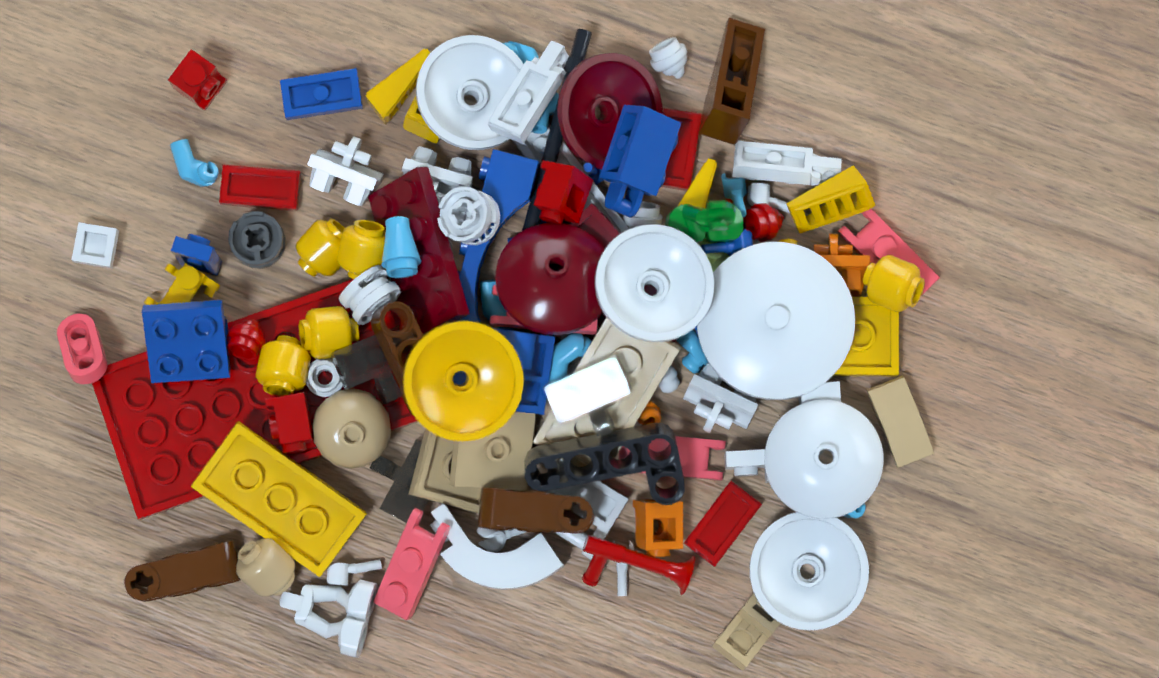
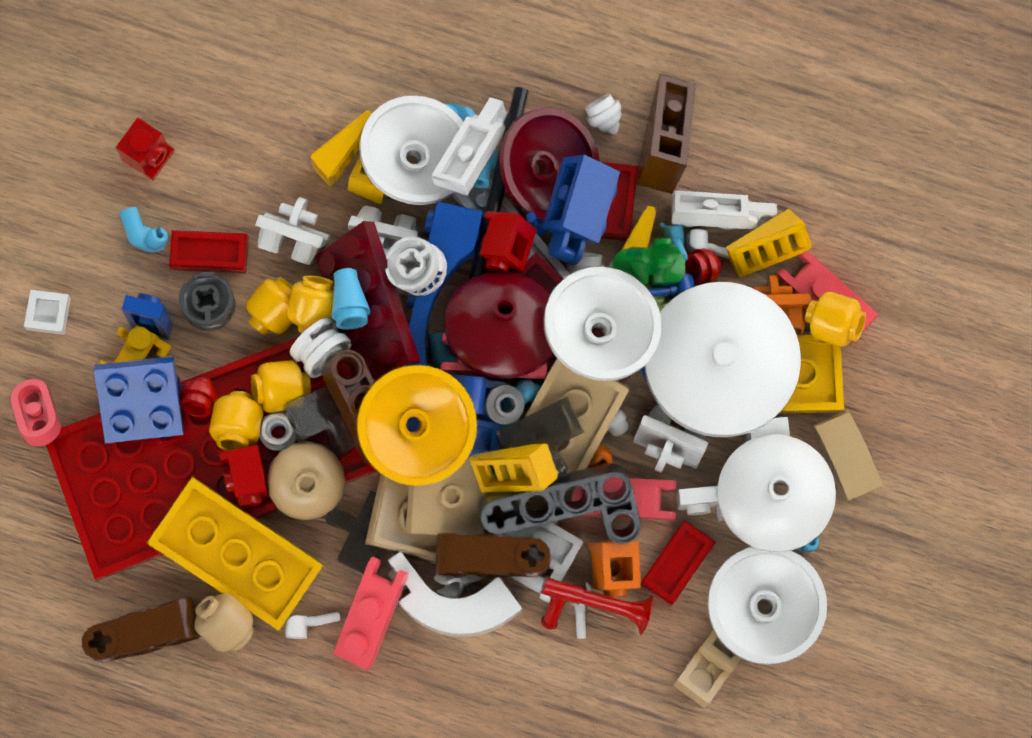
camera: 10 degrees left, 5 degrees down
(321, 94) = (266, 159): blue plate -> none
(352, 628) = (311, 682): white piece -> none
(541, 357) = (493, 400): none -> light grey plate
(579, 417) = (534, 459): none -> yellow slope
(695, 358) = (644, 400): medium azure arm -> none

